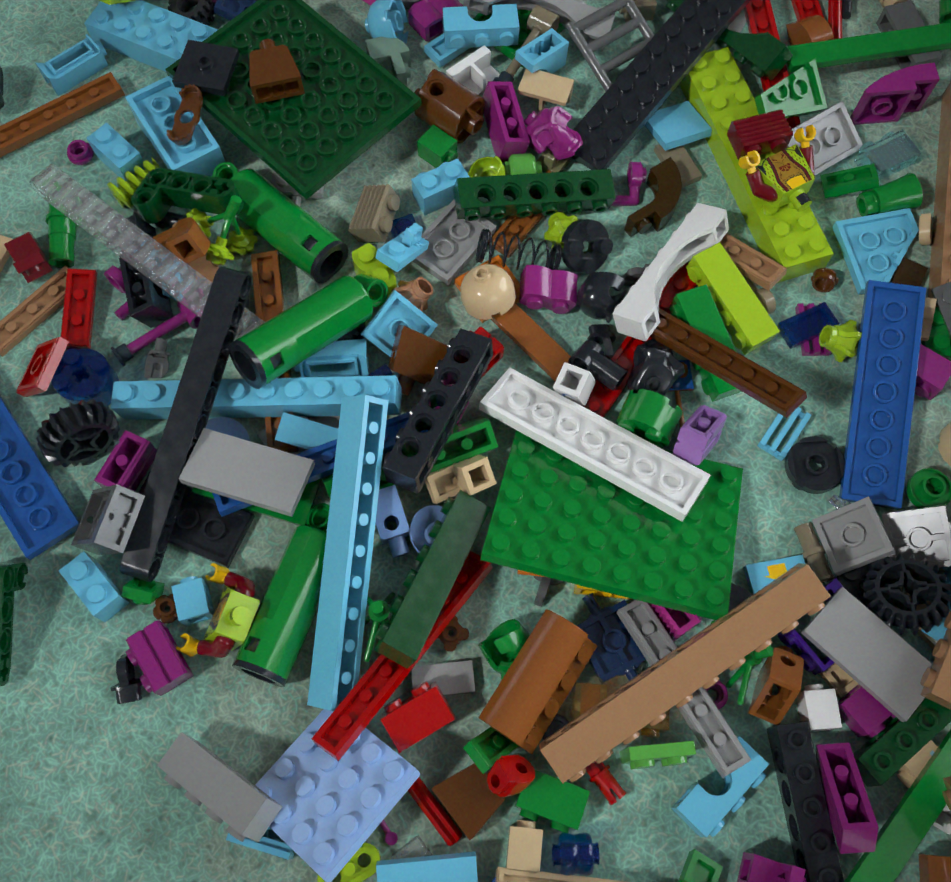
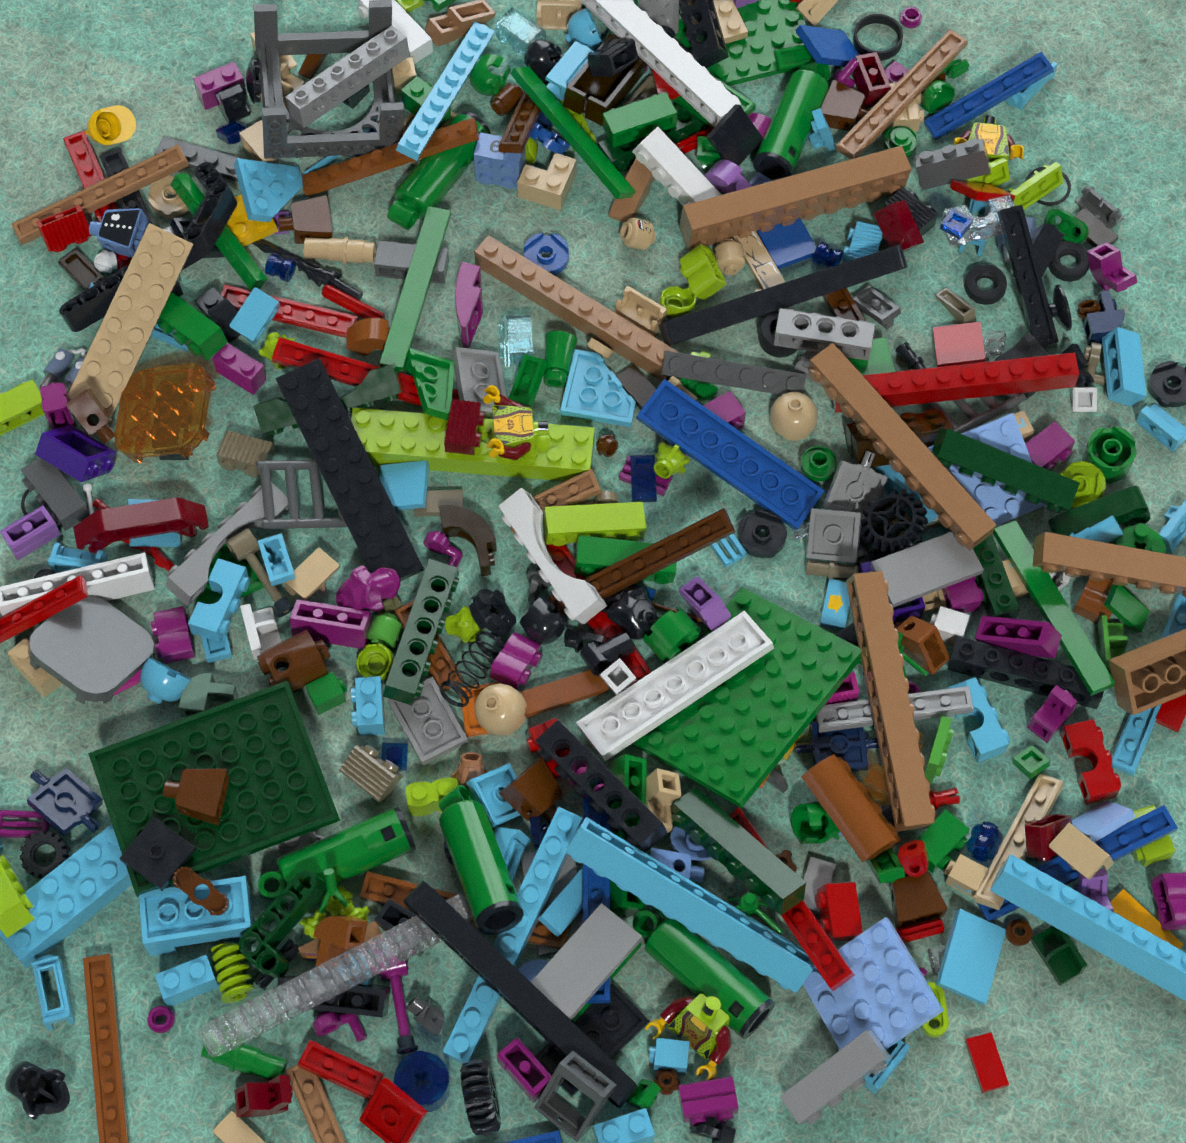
camera: 65 degrees left, 5 degrees down
(403, 248) = (426, 760): medium azure hinge -> none

